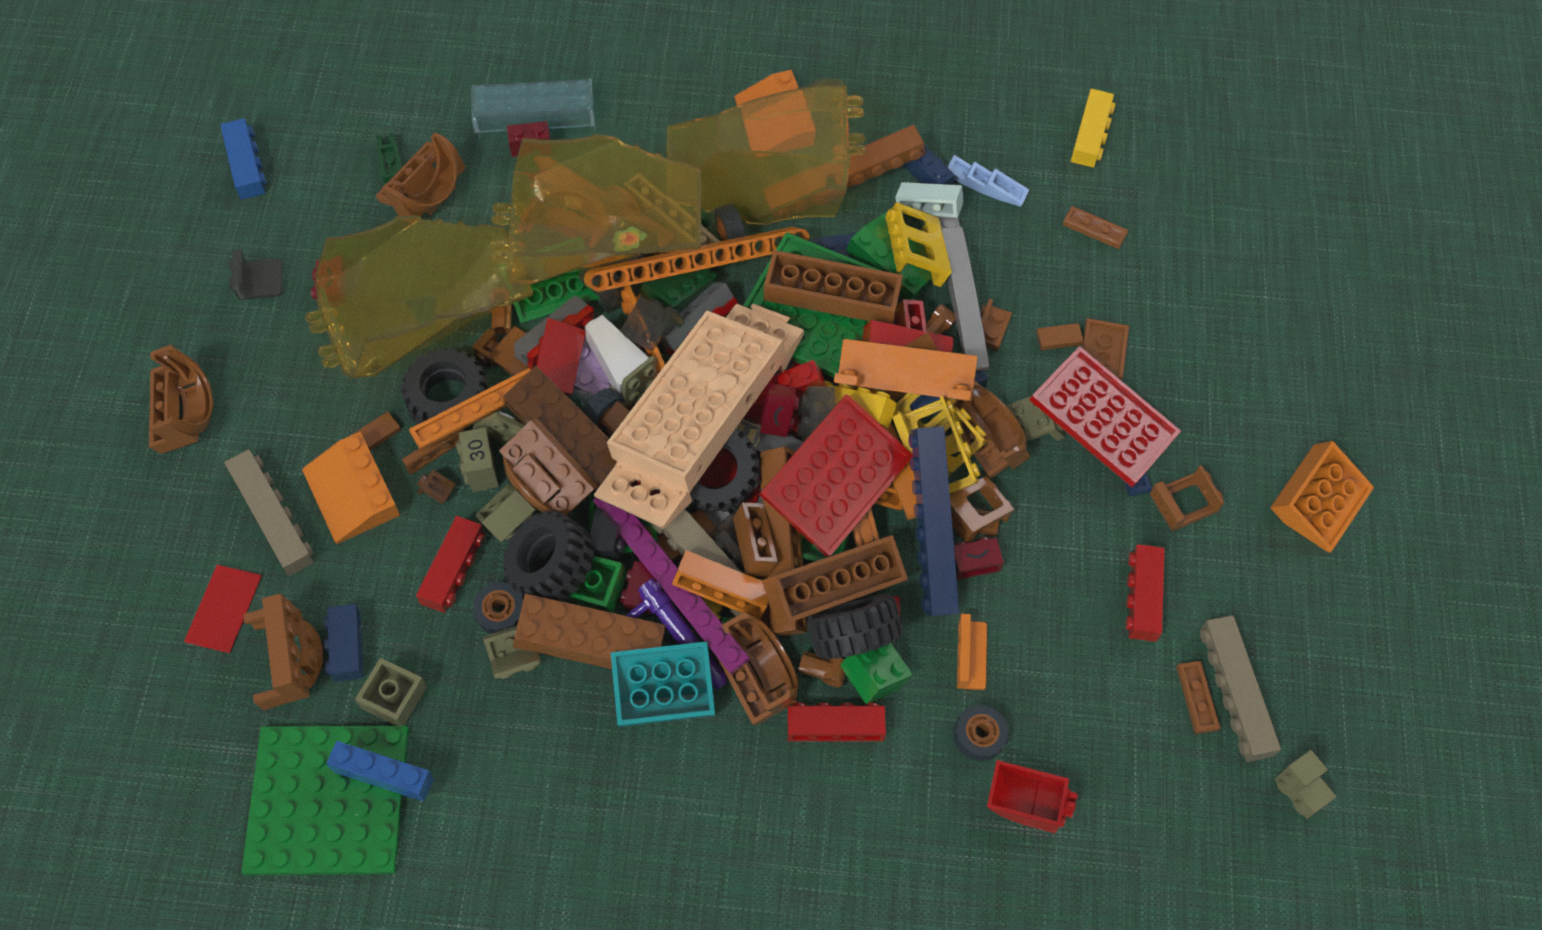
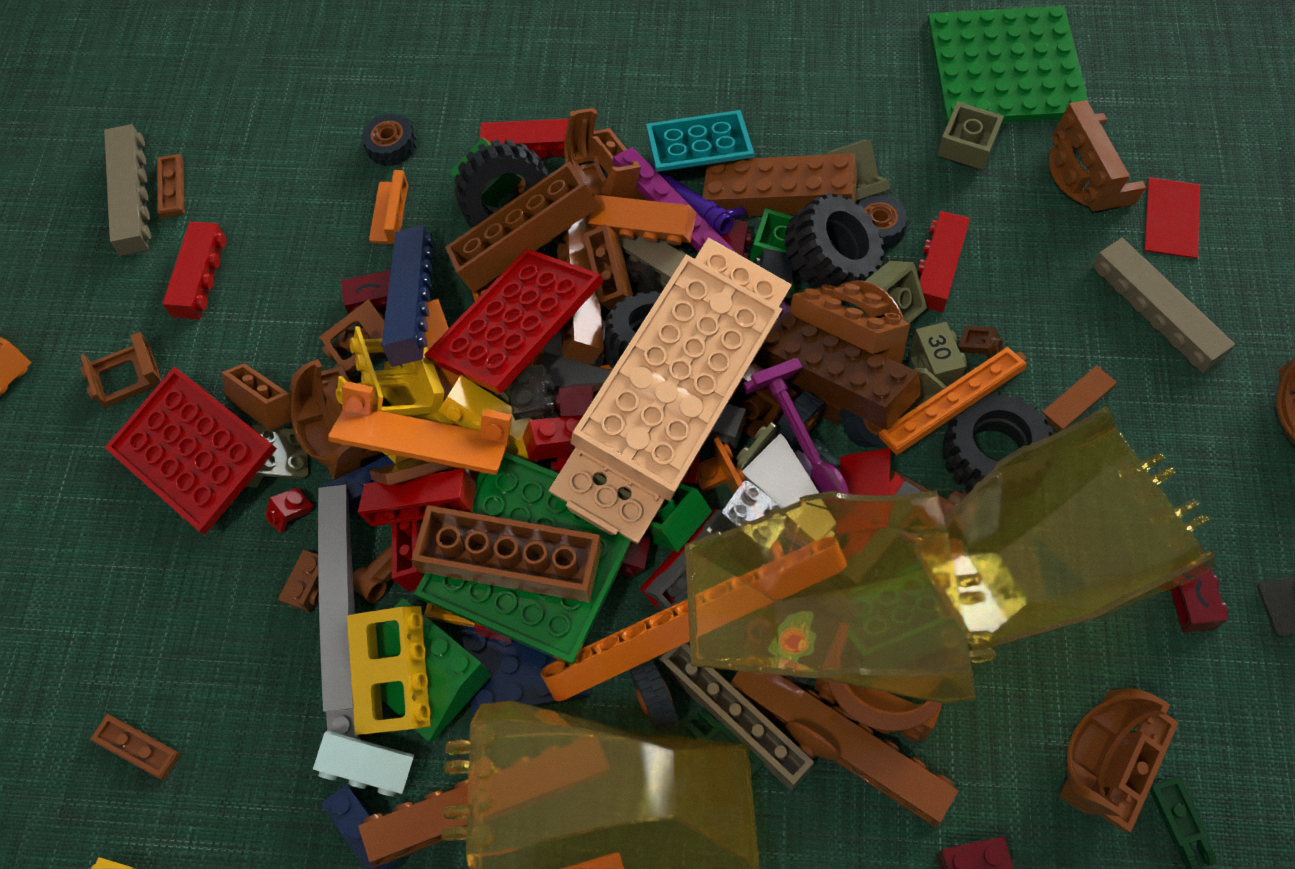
camera: 175 degrees left, 0 degrees up
(344, 643) = (1032, 183): dark blue brick -> none
(350, 489) = (1075, 336): orange slope -> none
(380, 771) = (961, 65): blue brick -> none
(618, 411) = (823, 474): none -> magenta piece
(986, 182) = (277, 818): light blue slope -> none
(1016, 377) = (287, 507): none -> red bracket
(1031, 797) = (345, 86): red piece -> none
(1058, 454) = (257, 396): none -> dark orange brick
(1059, 336) = (222, 571): dark orange tile -> none
(1107, 344) = (169, 558): dark orange tile -> none
(1304, 785) = (92, 109): olive brick -> none

